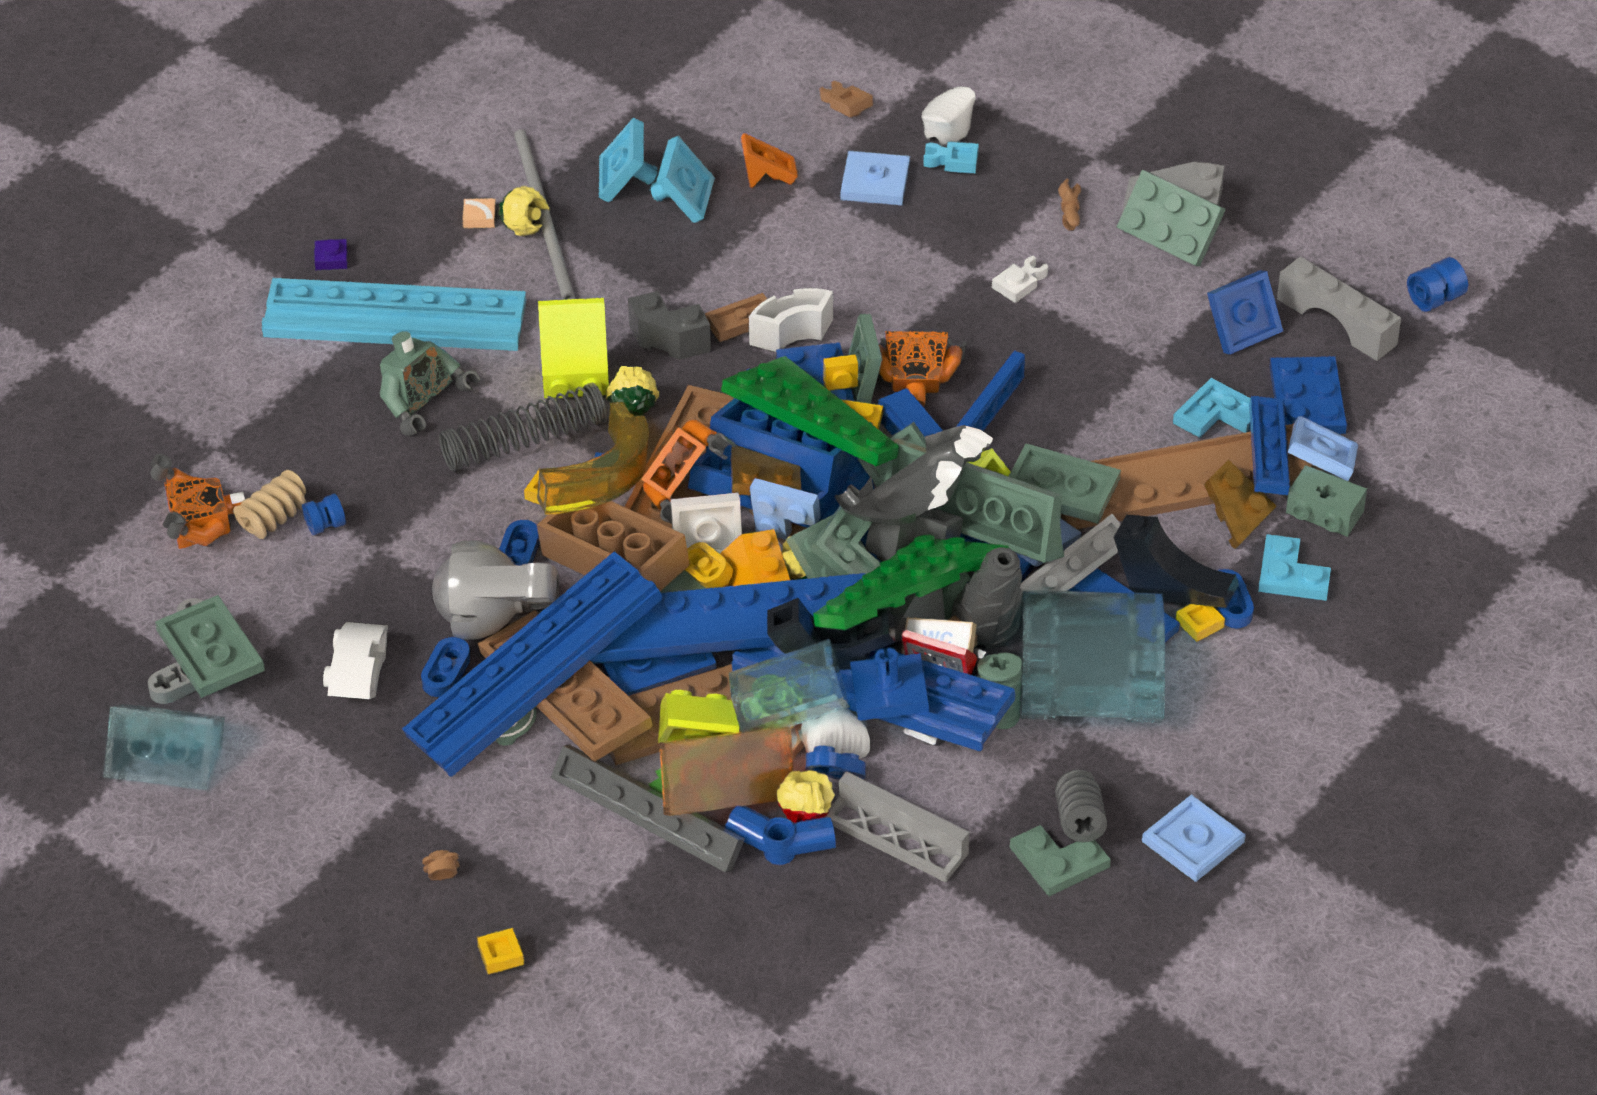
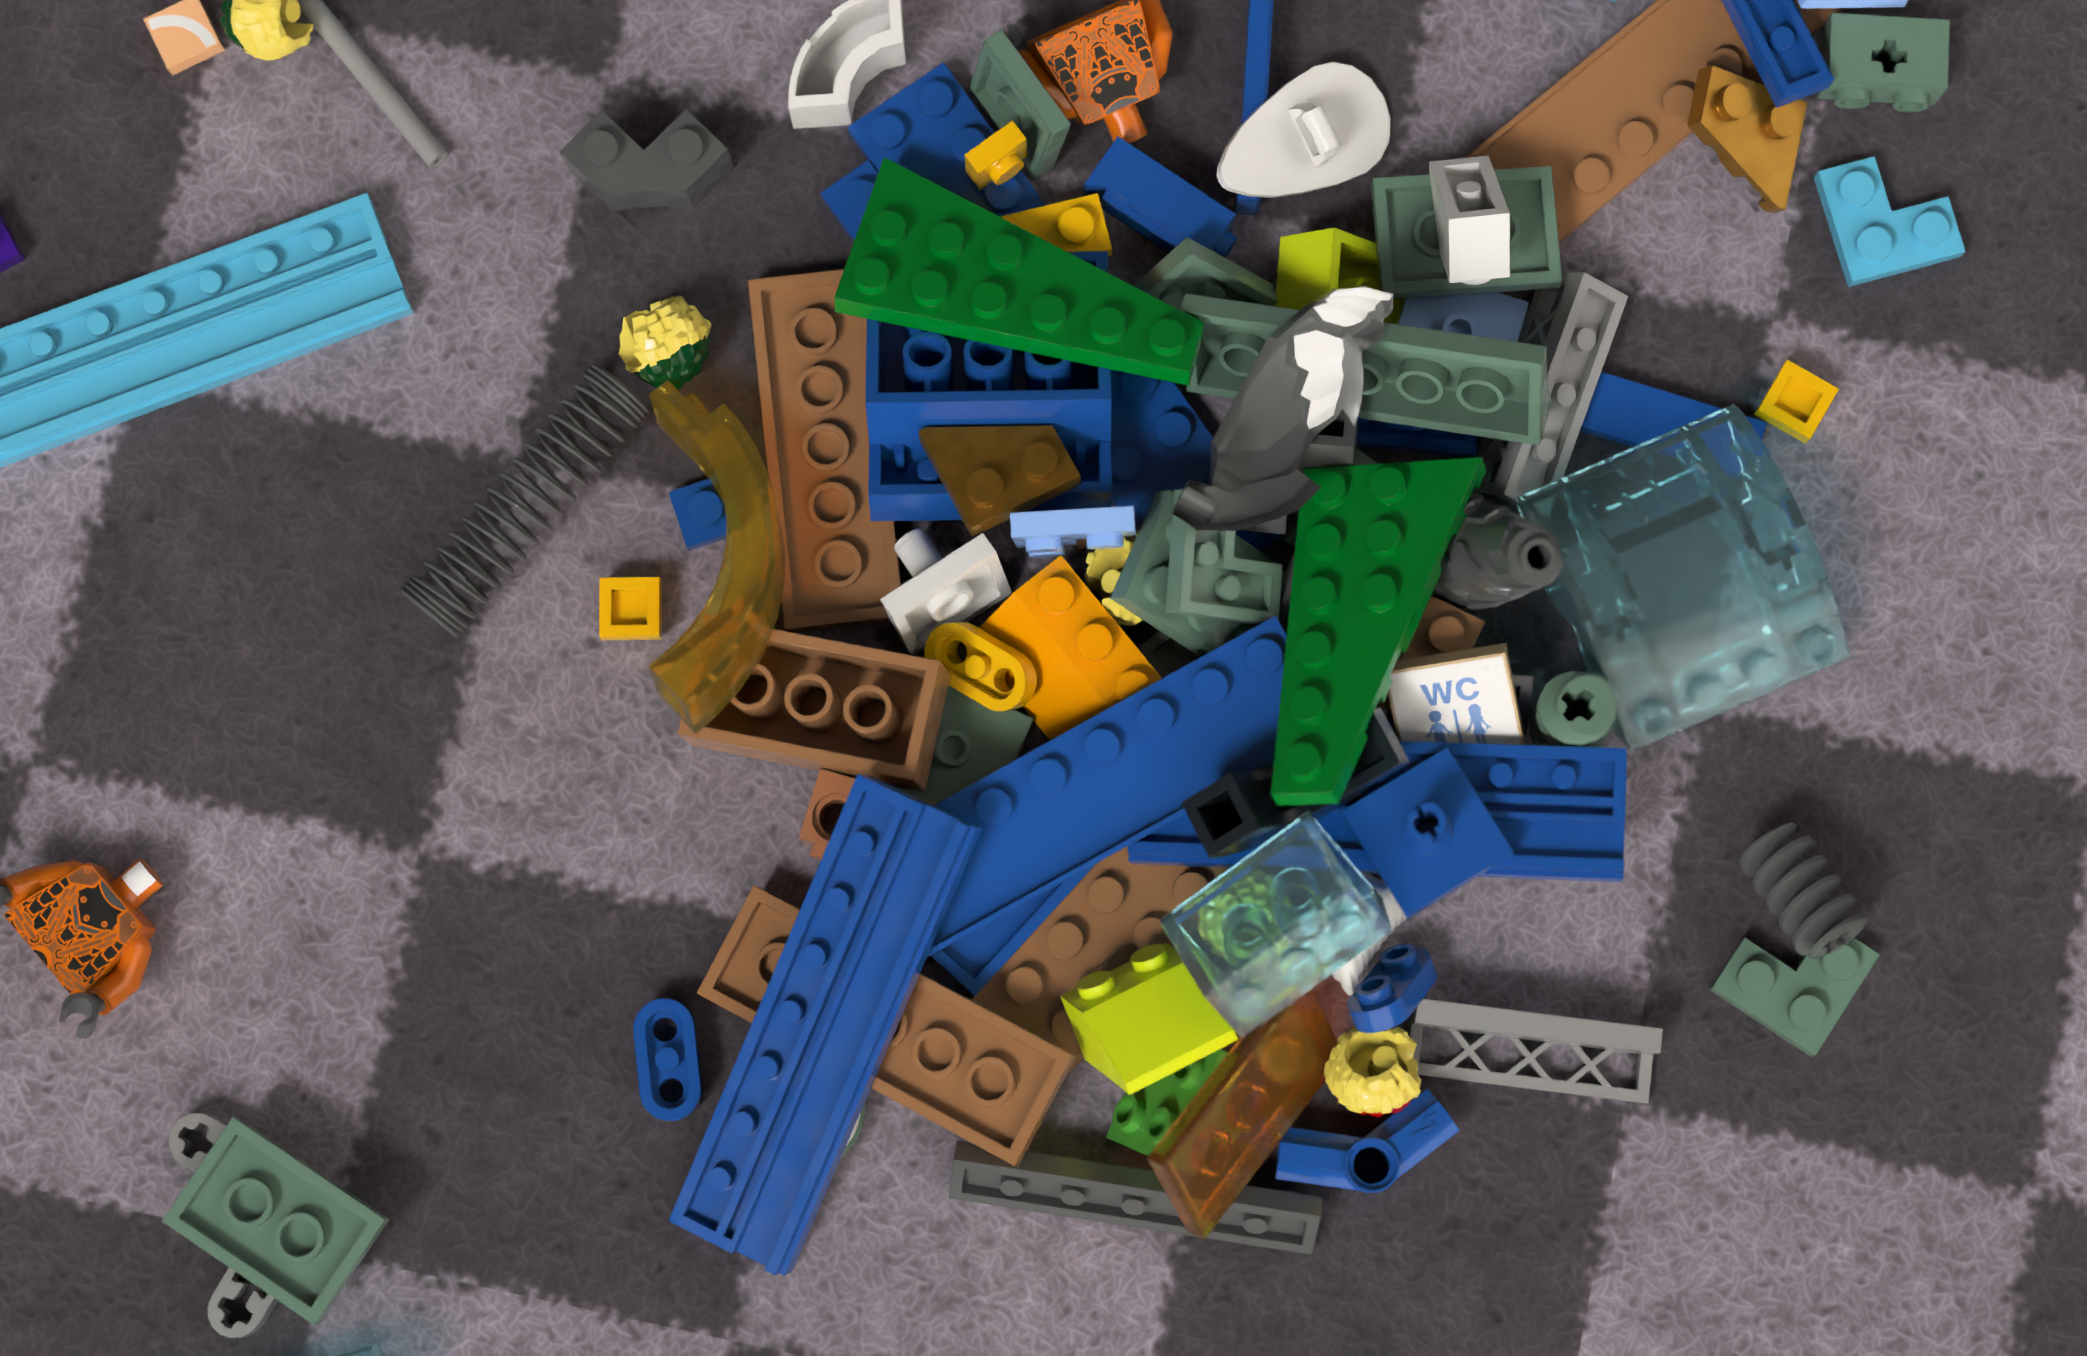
camera: 25 degrees left, 35 degrees up
(271, 504) = (204, 865): tan piece -> none
(323, 514) = (297, 838): blue wheel -> none
(356, 660) = (525, 1127): white brick -> none
(416, 375) = (288, 480): torso -> none
(485, 589) = (674, 911): light grey piece -> none
(512, 544) = (651, 759): blue plate -> none
(573, 345) = (535, 320): neon yellow slope -> none
(676, 458) = (838, 501): orange torso -> none
(733, 318) = (750, 80): medium nougat plate -> none
(939, 652) = (1472, 722): red slope -> none
(1007, 421) = (1308, 135): none -> white shield
(1061, 467) = (1470, 220): none -> white slope
(1160, 567) = (1706, 346): black arch -> none
(1193, 838) = (1983, 851): light blue plate -> none
(1240, 608) = (1828, 331): blue plate -> none

